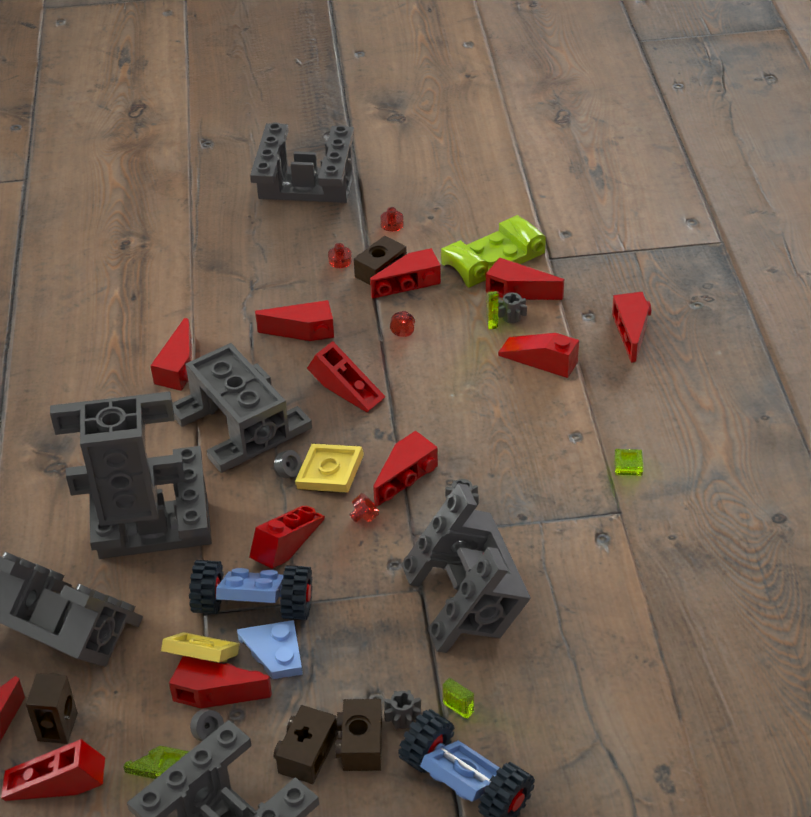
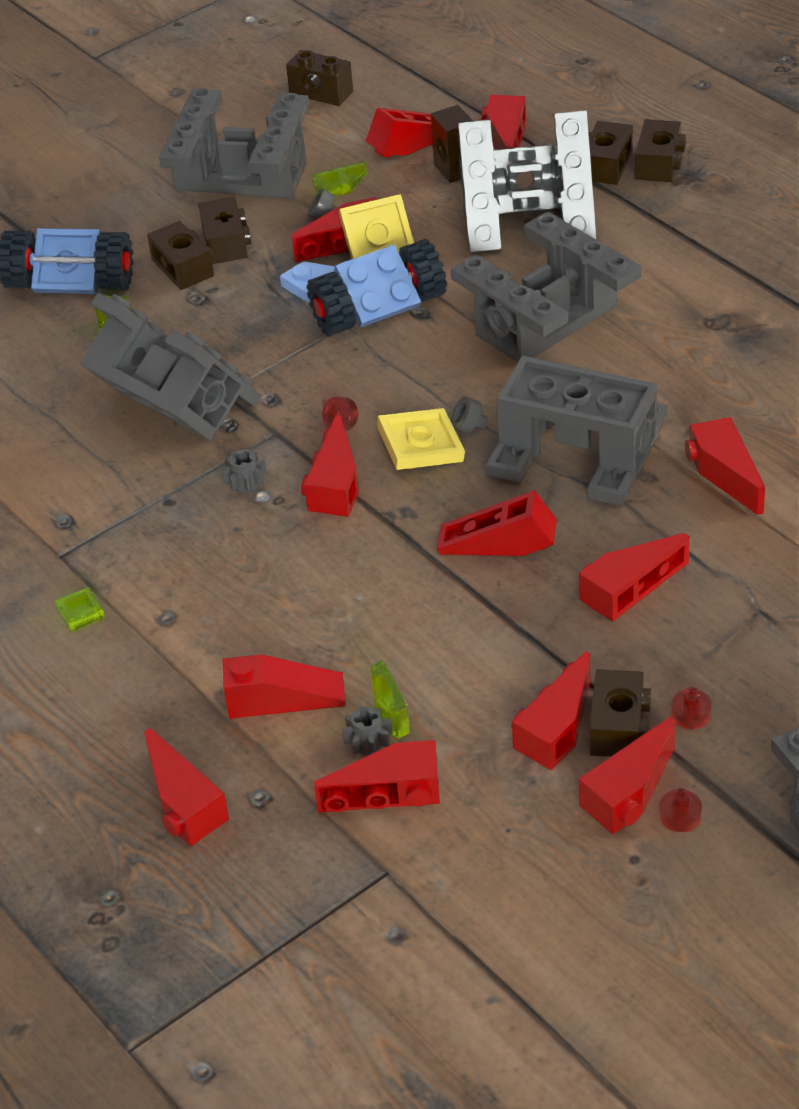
camera: 150 degrees right, 0 degrees up
(116, 454) = (538, 192): dark grey piece -> none
(282, 536) = (399, 356): red slope -> none
(402, 324) = (496, 636): clear red tile -> none
(402, 709) = (158, 284): dark grey gear -> none
(411, 230) = (624, 783): none -> red slope
(514, 241) = (473, 820): lime piece -> none

